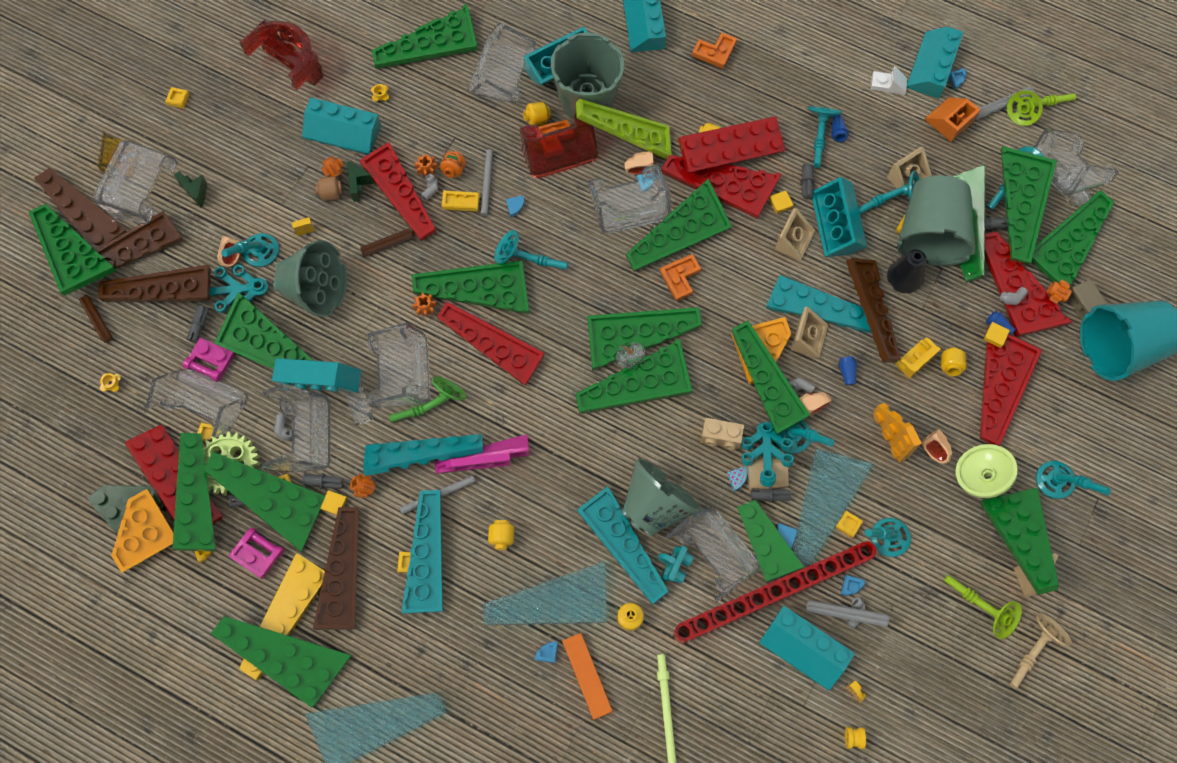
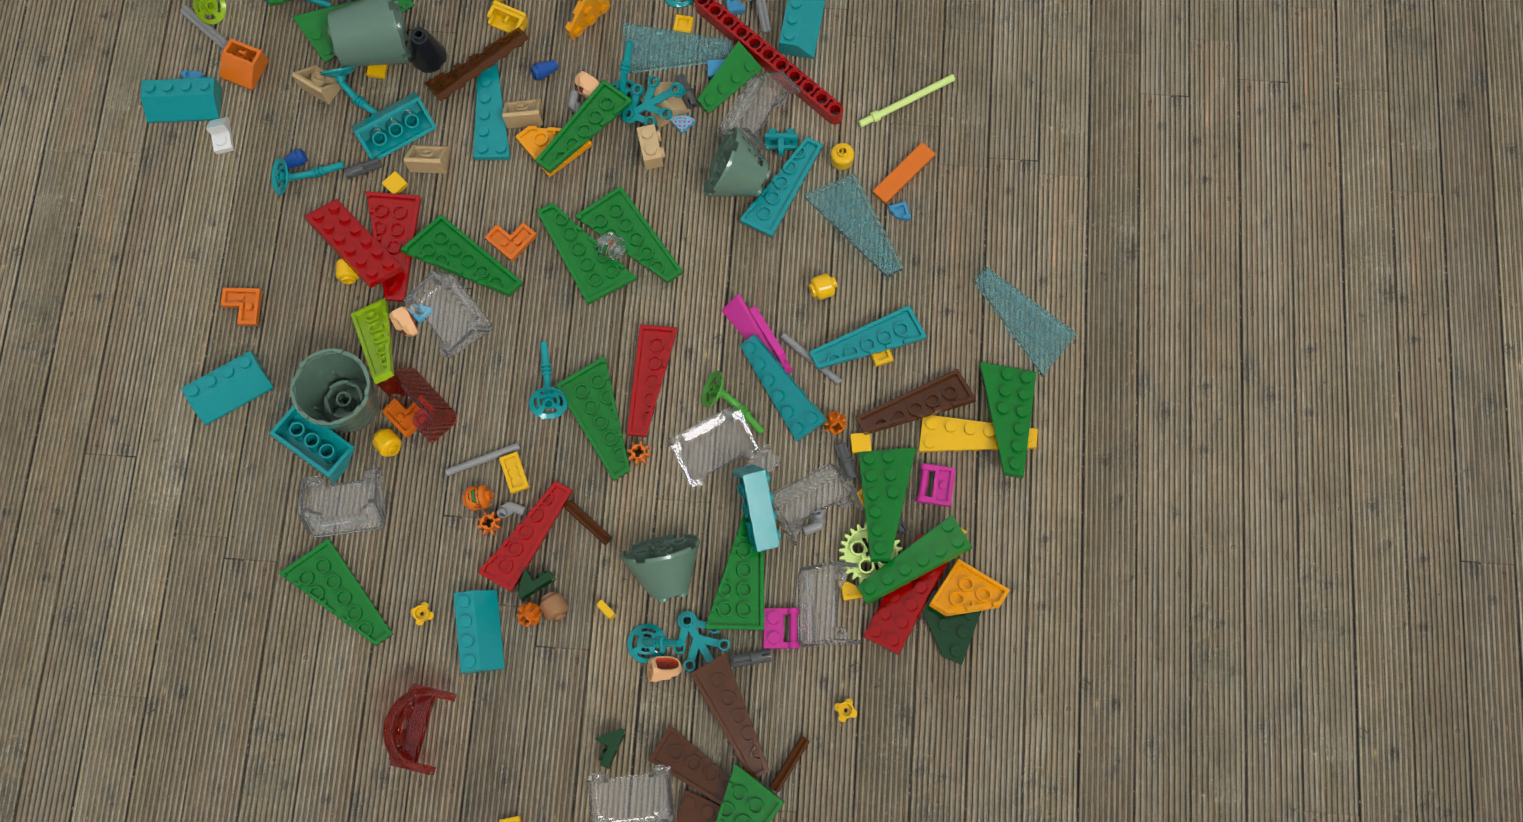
camera: 110 degrees left, 5 degrees up
(515, 205) = (497, 420): dark azure tile -> none

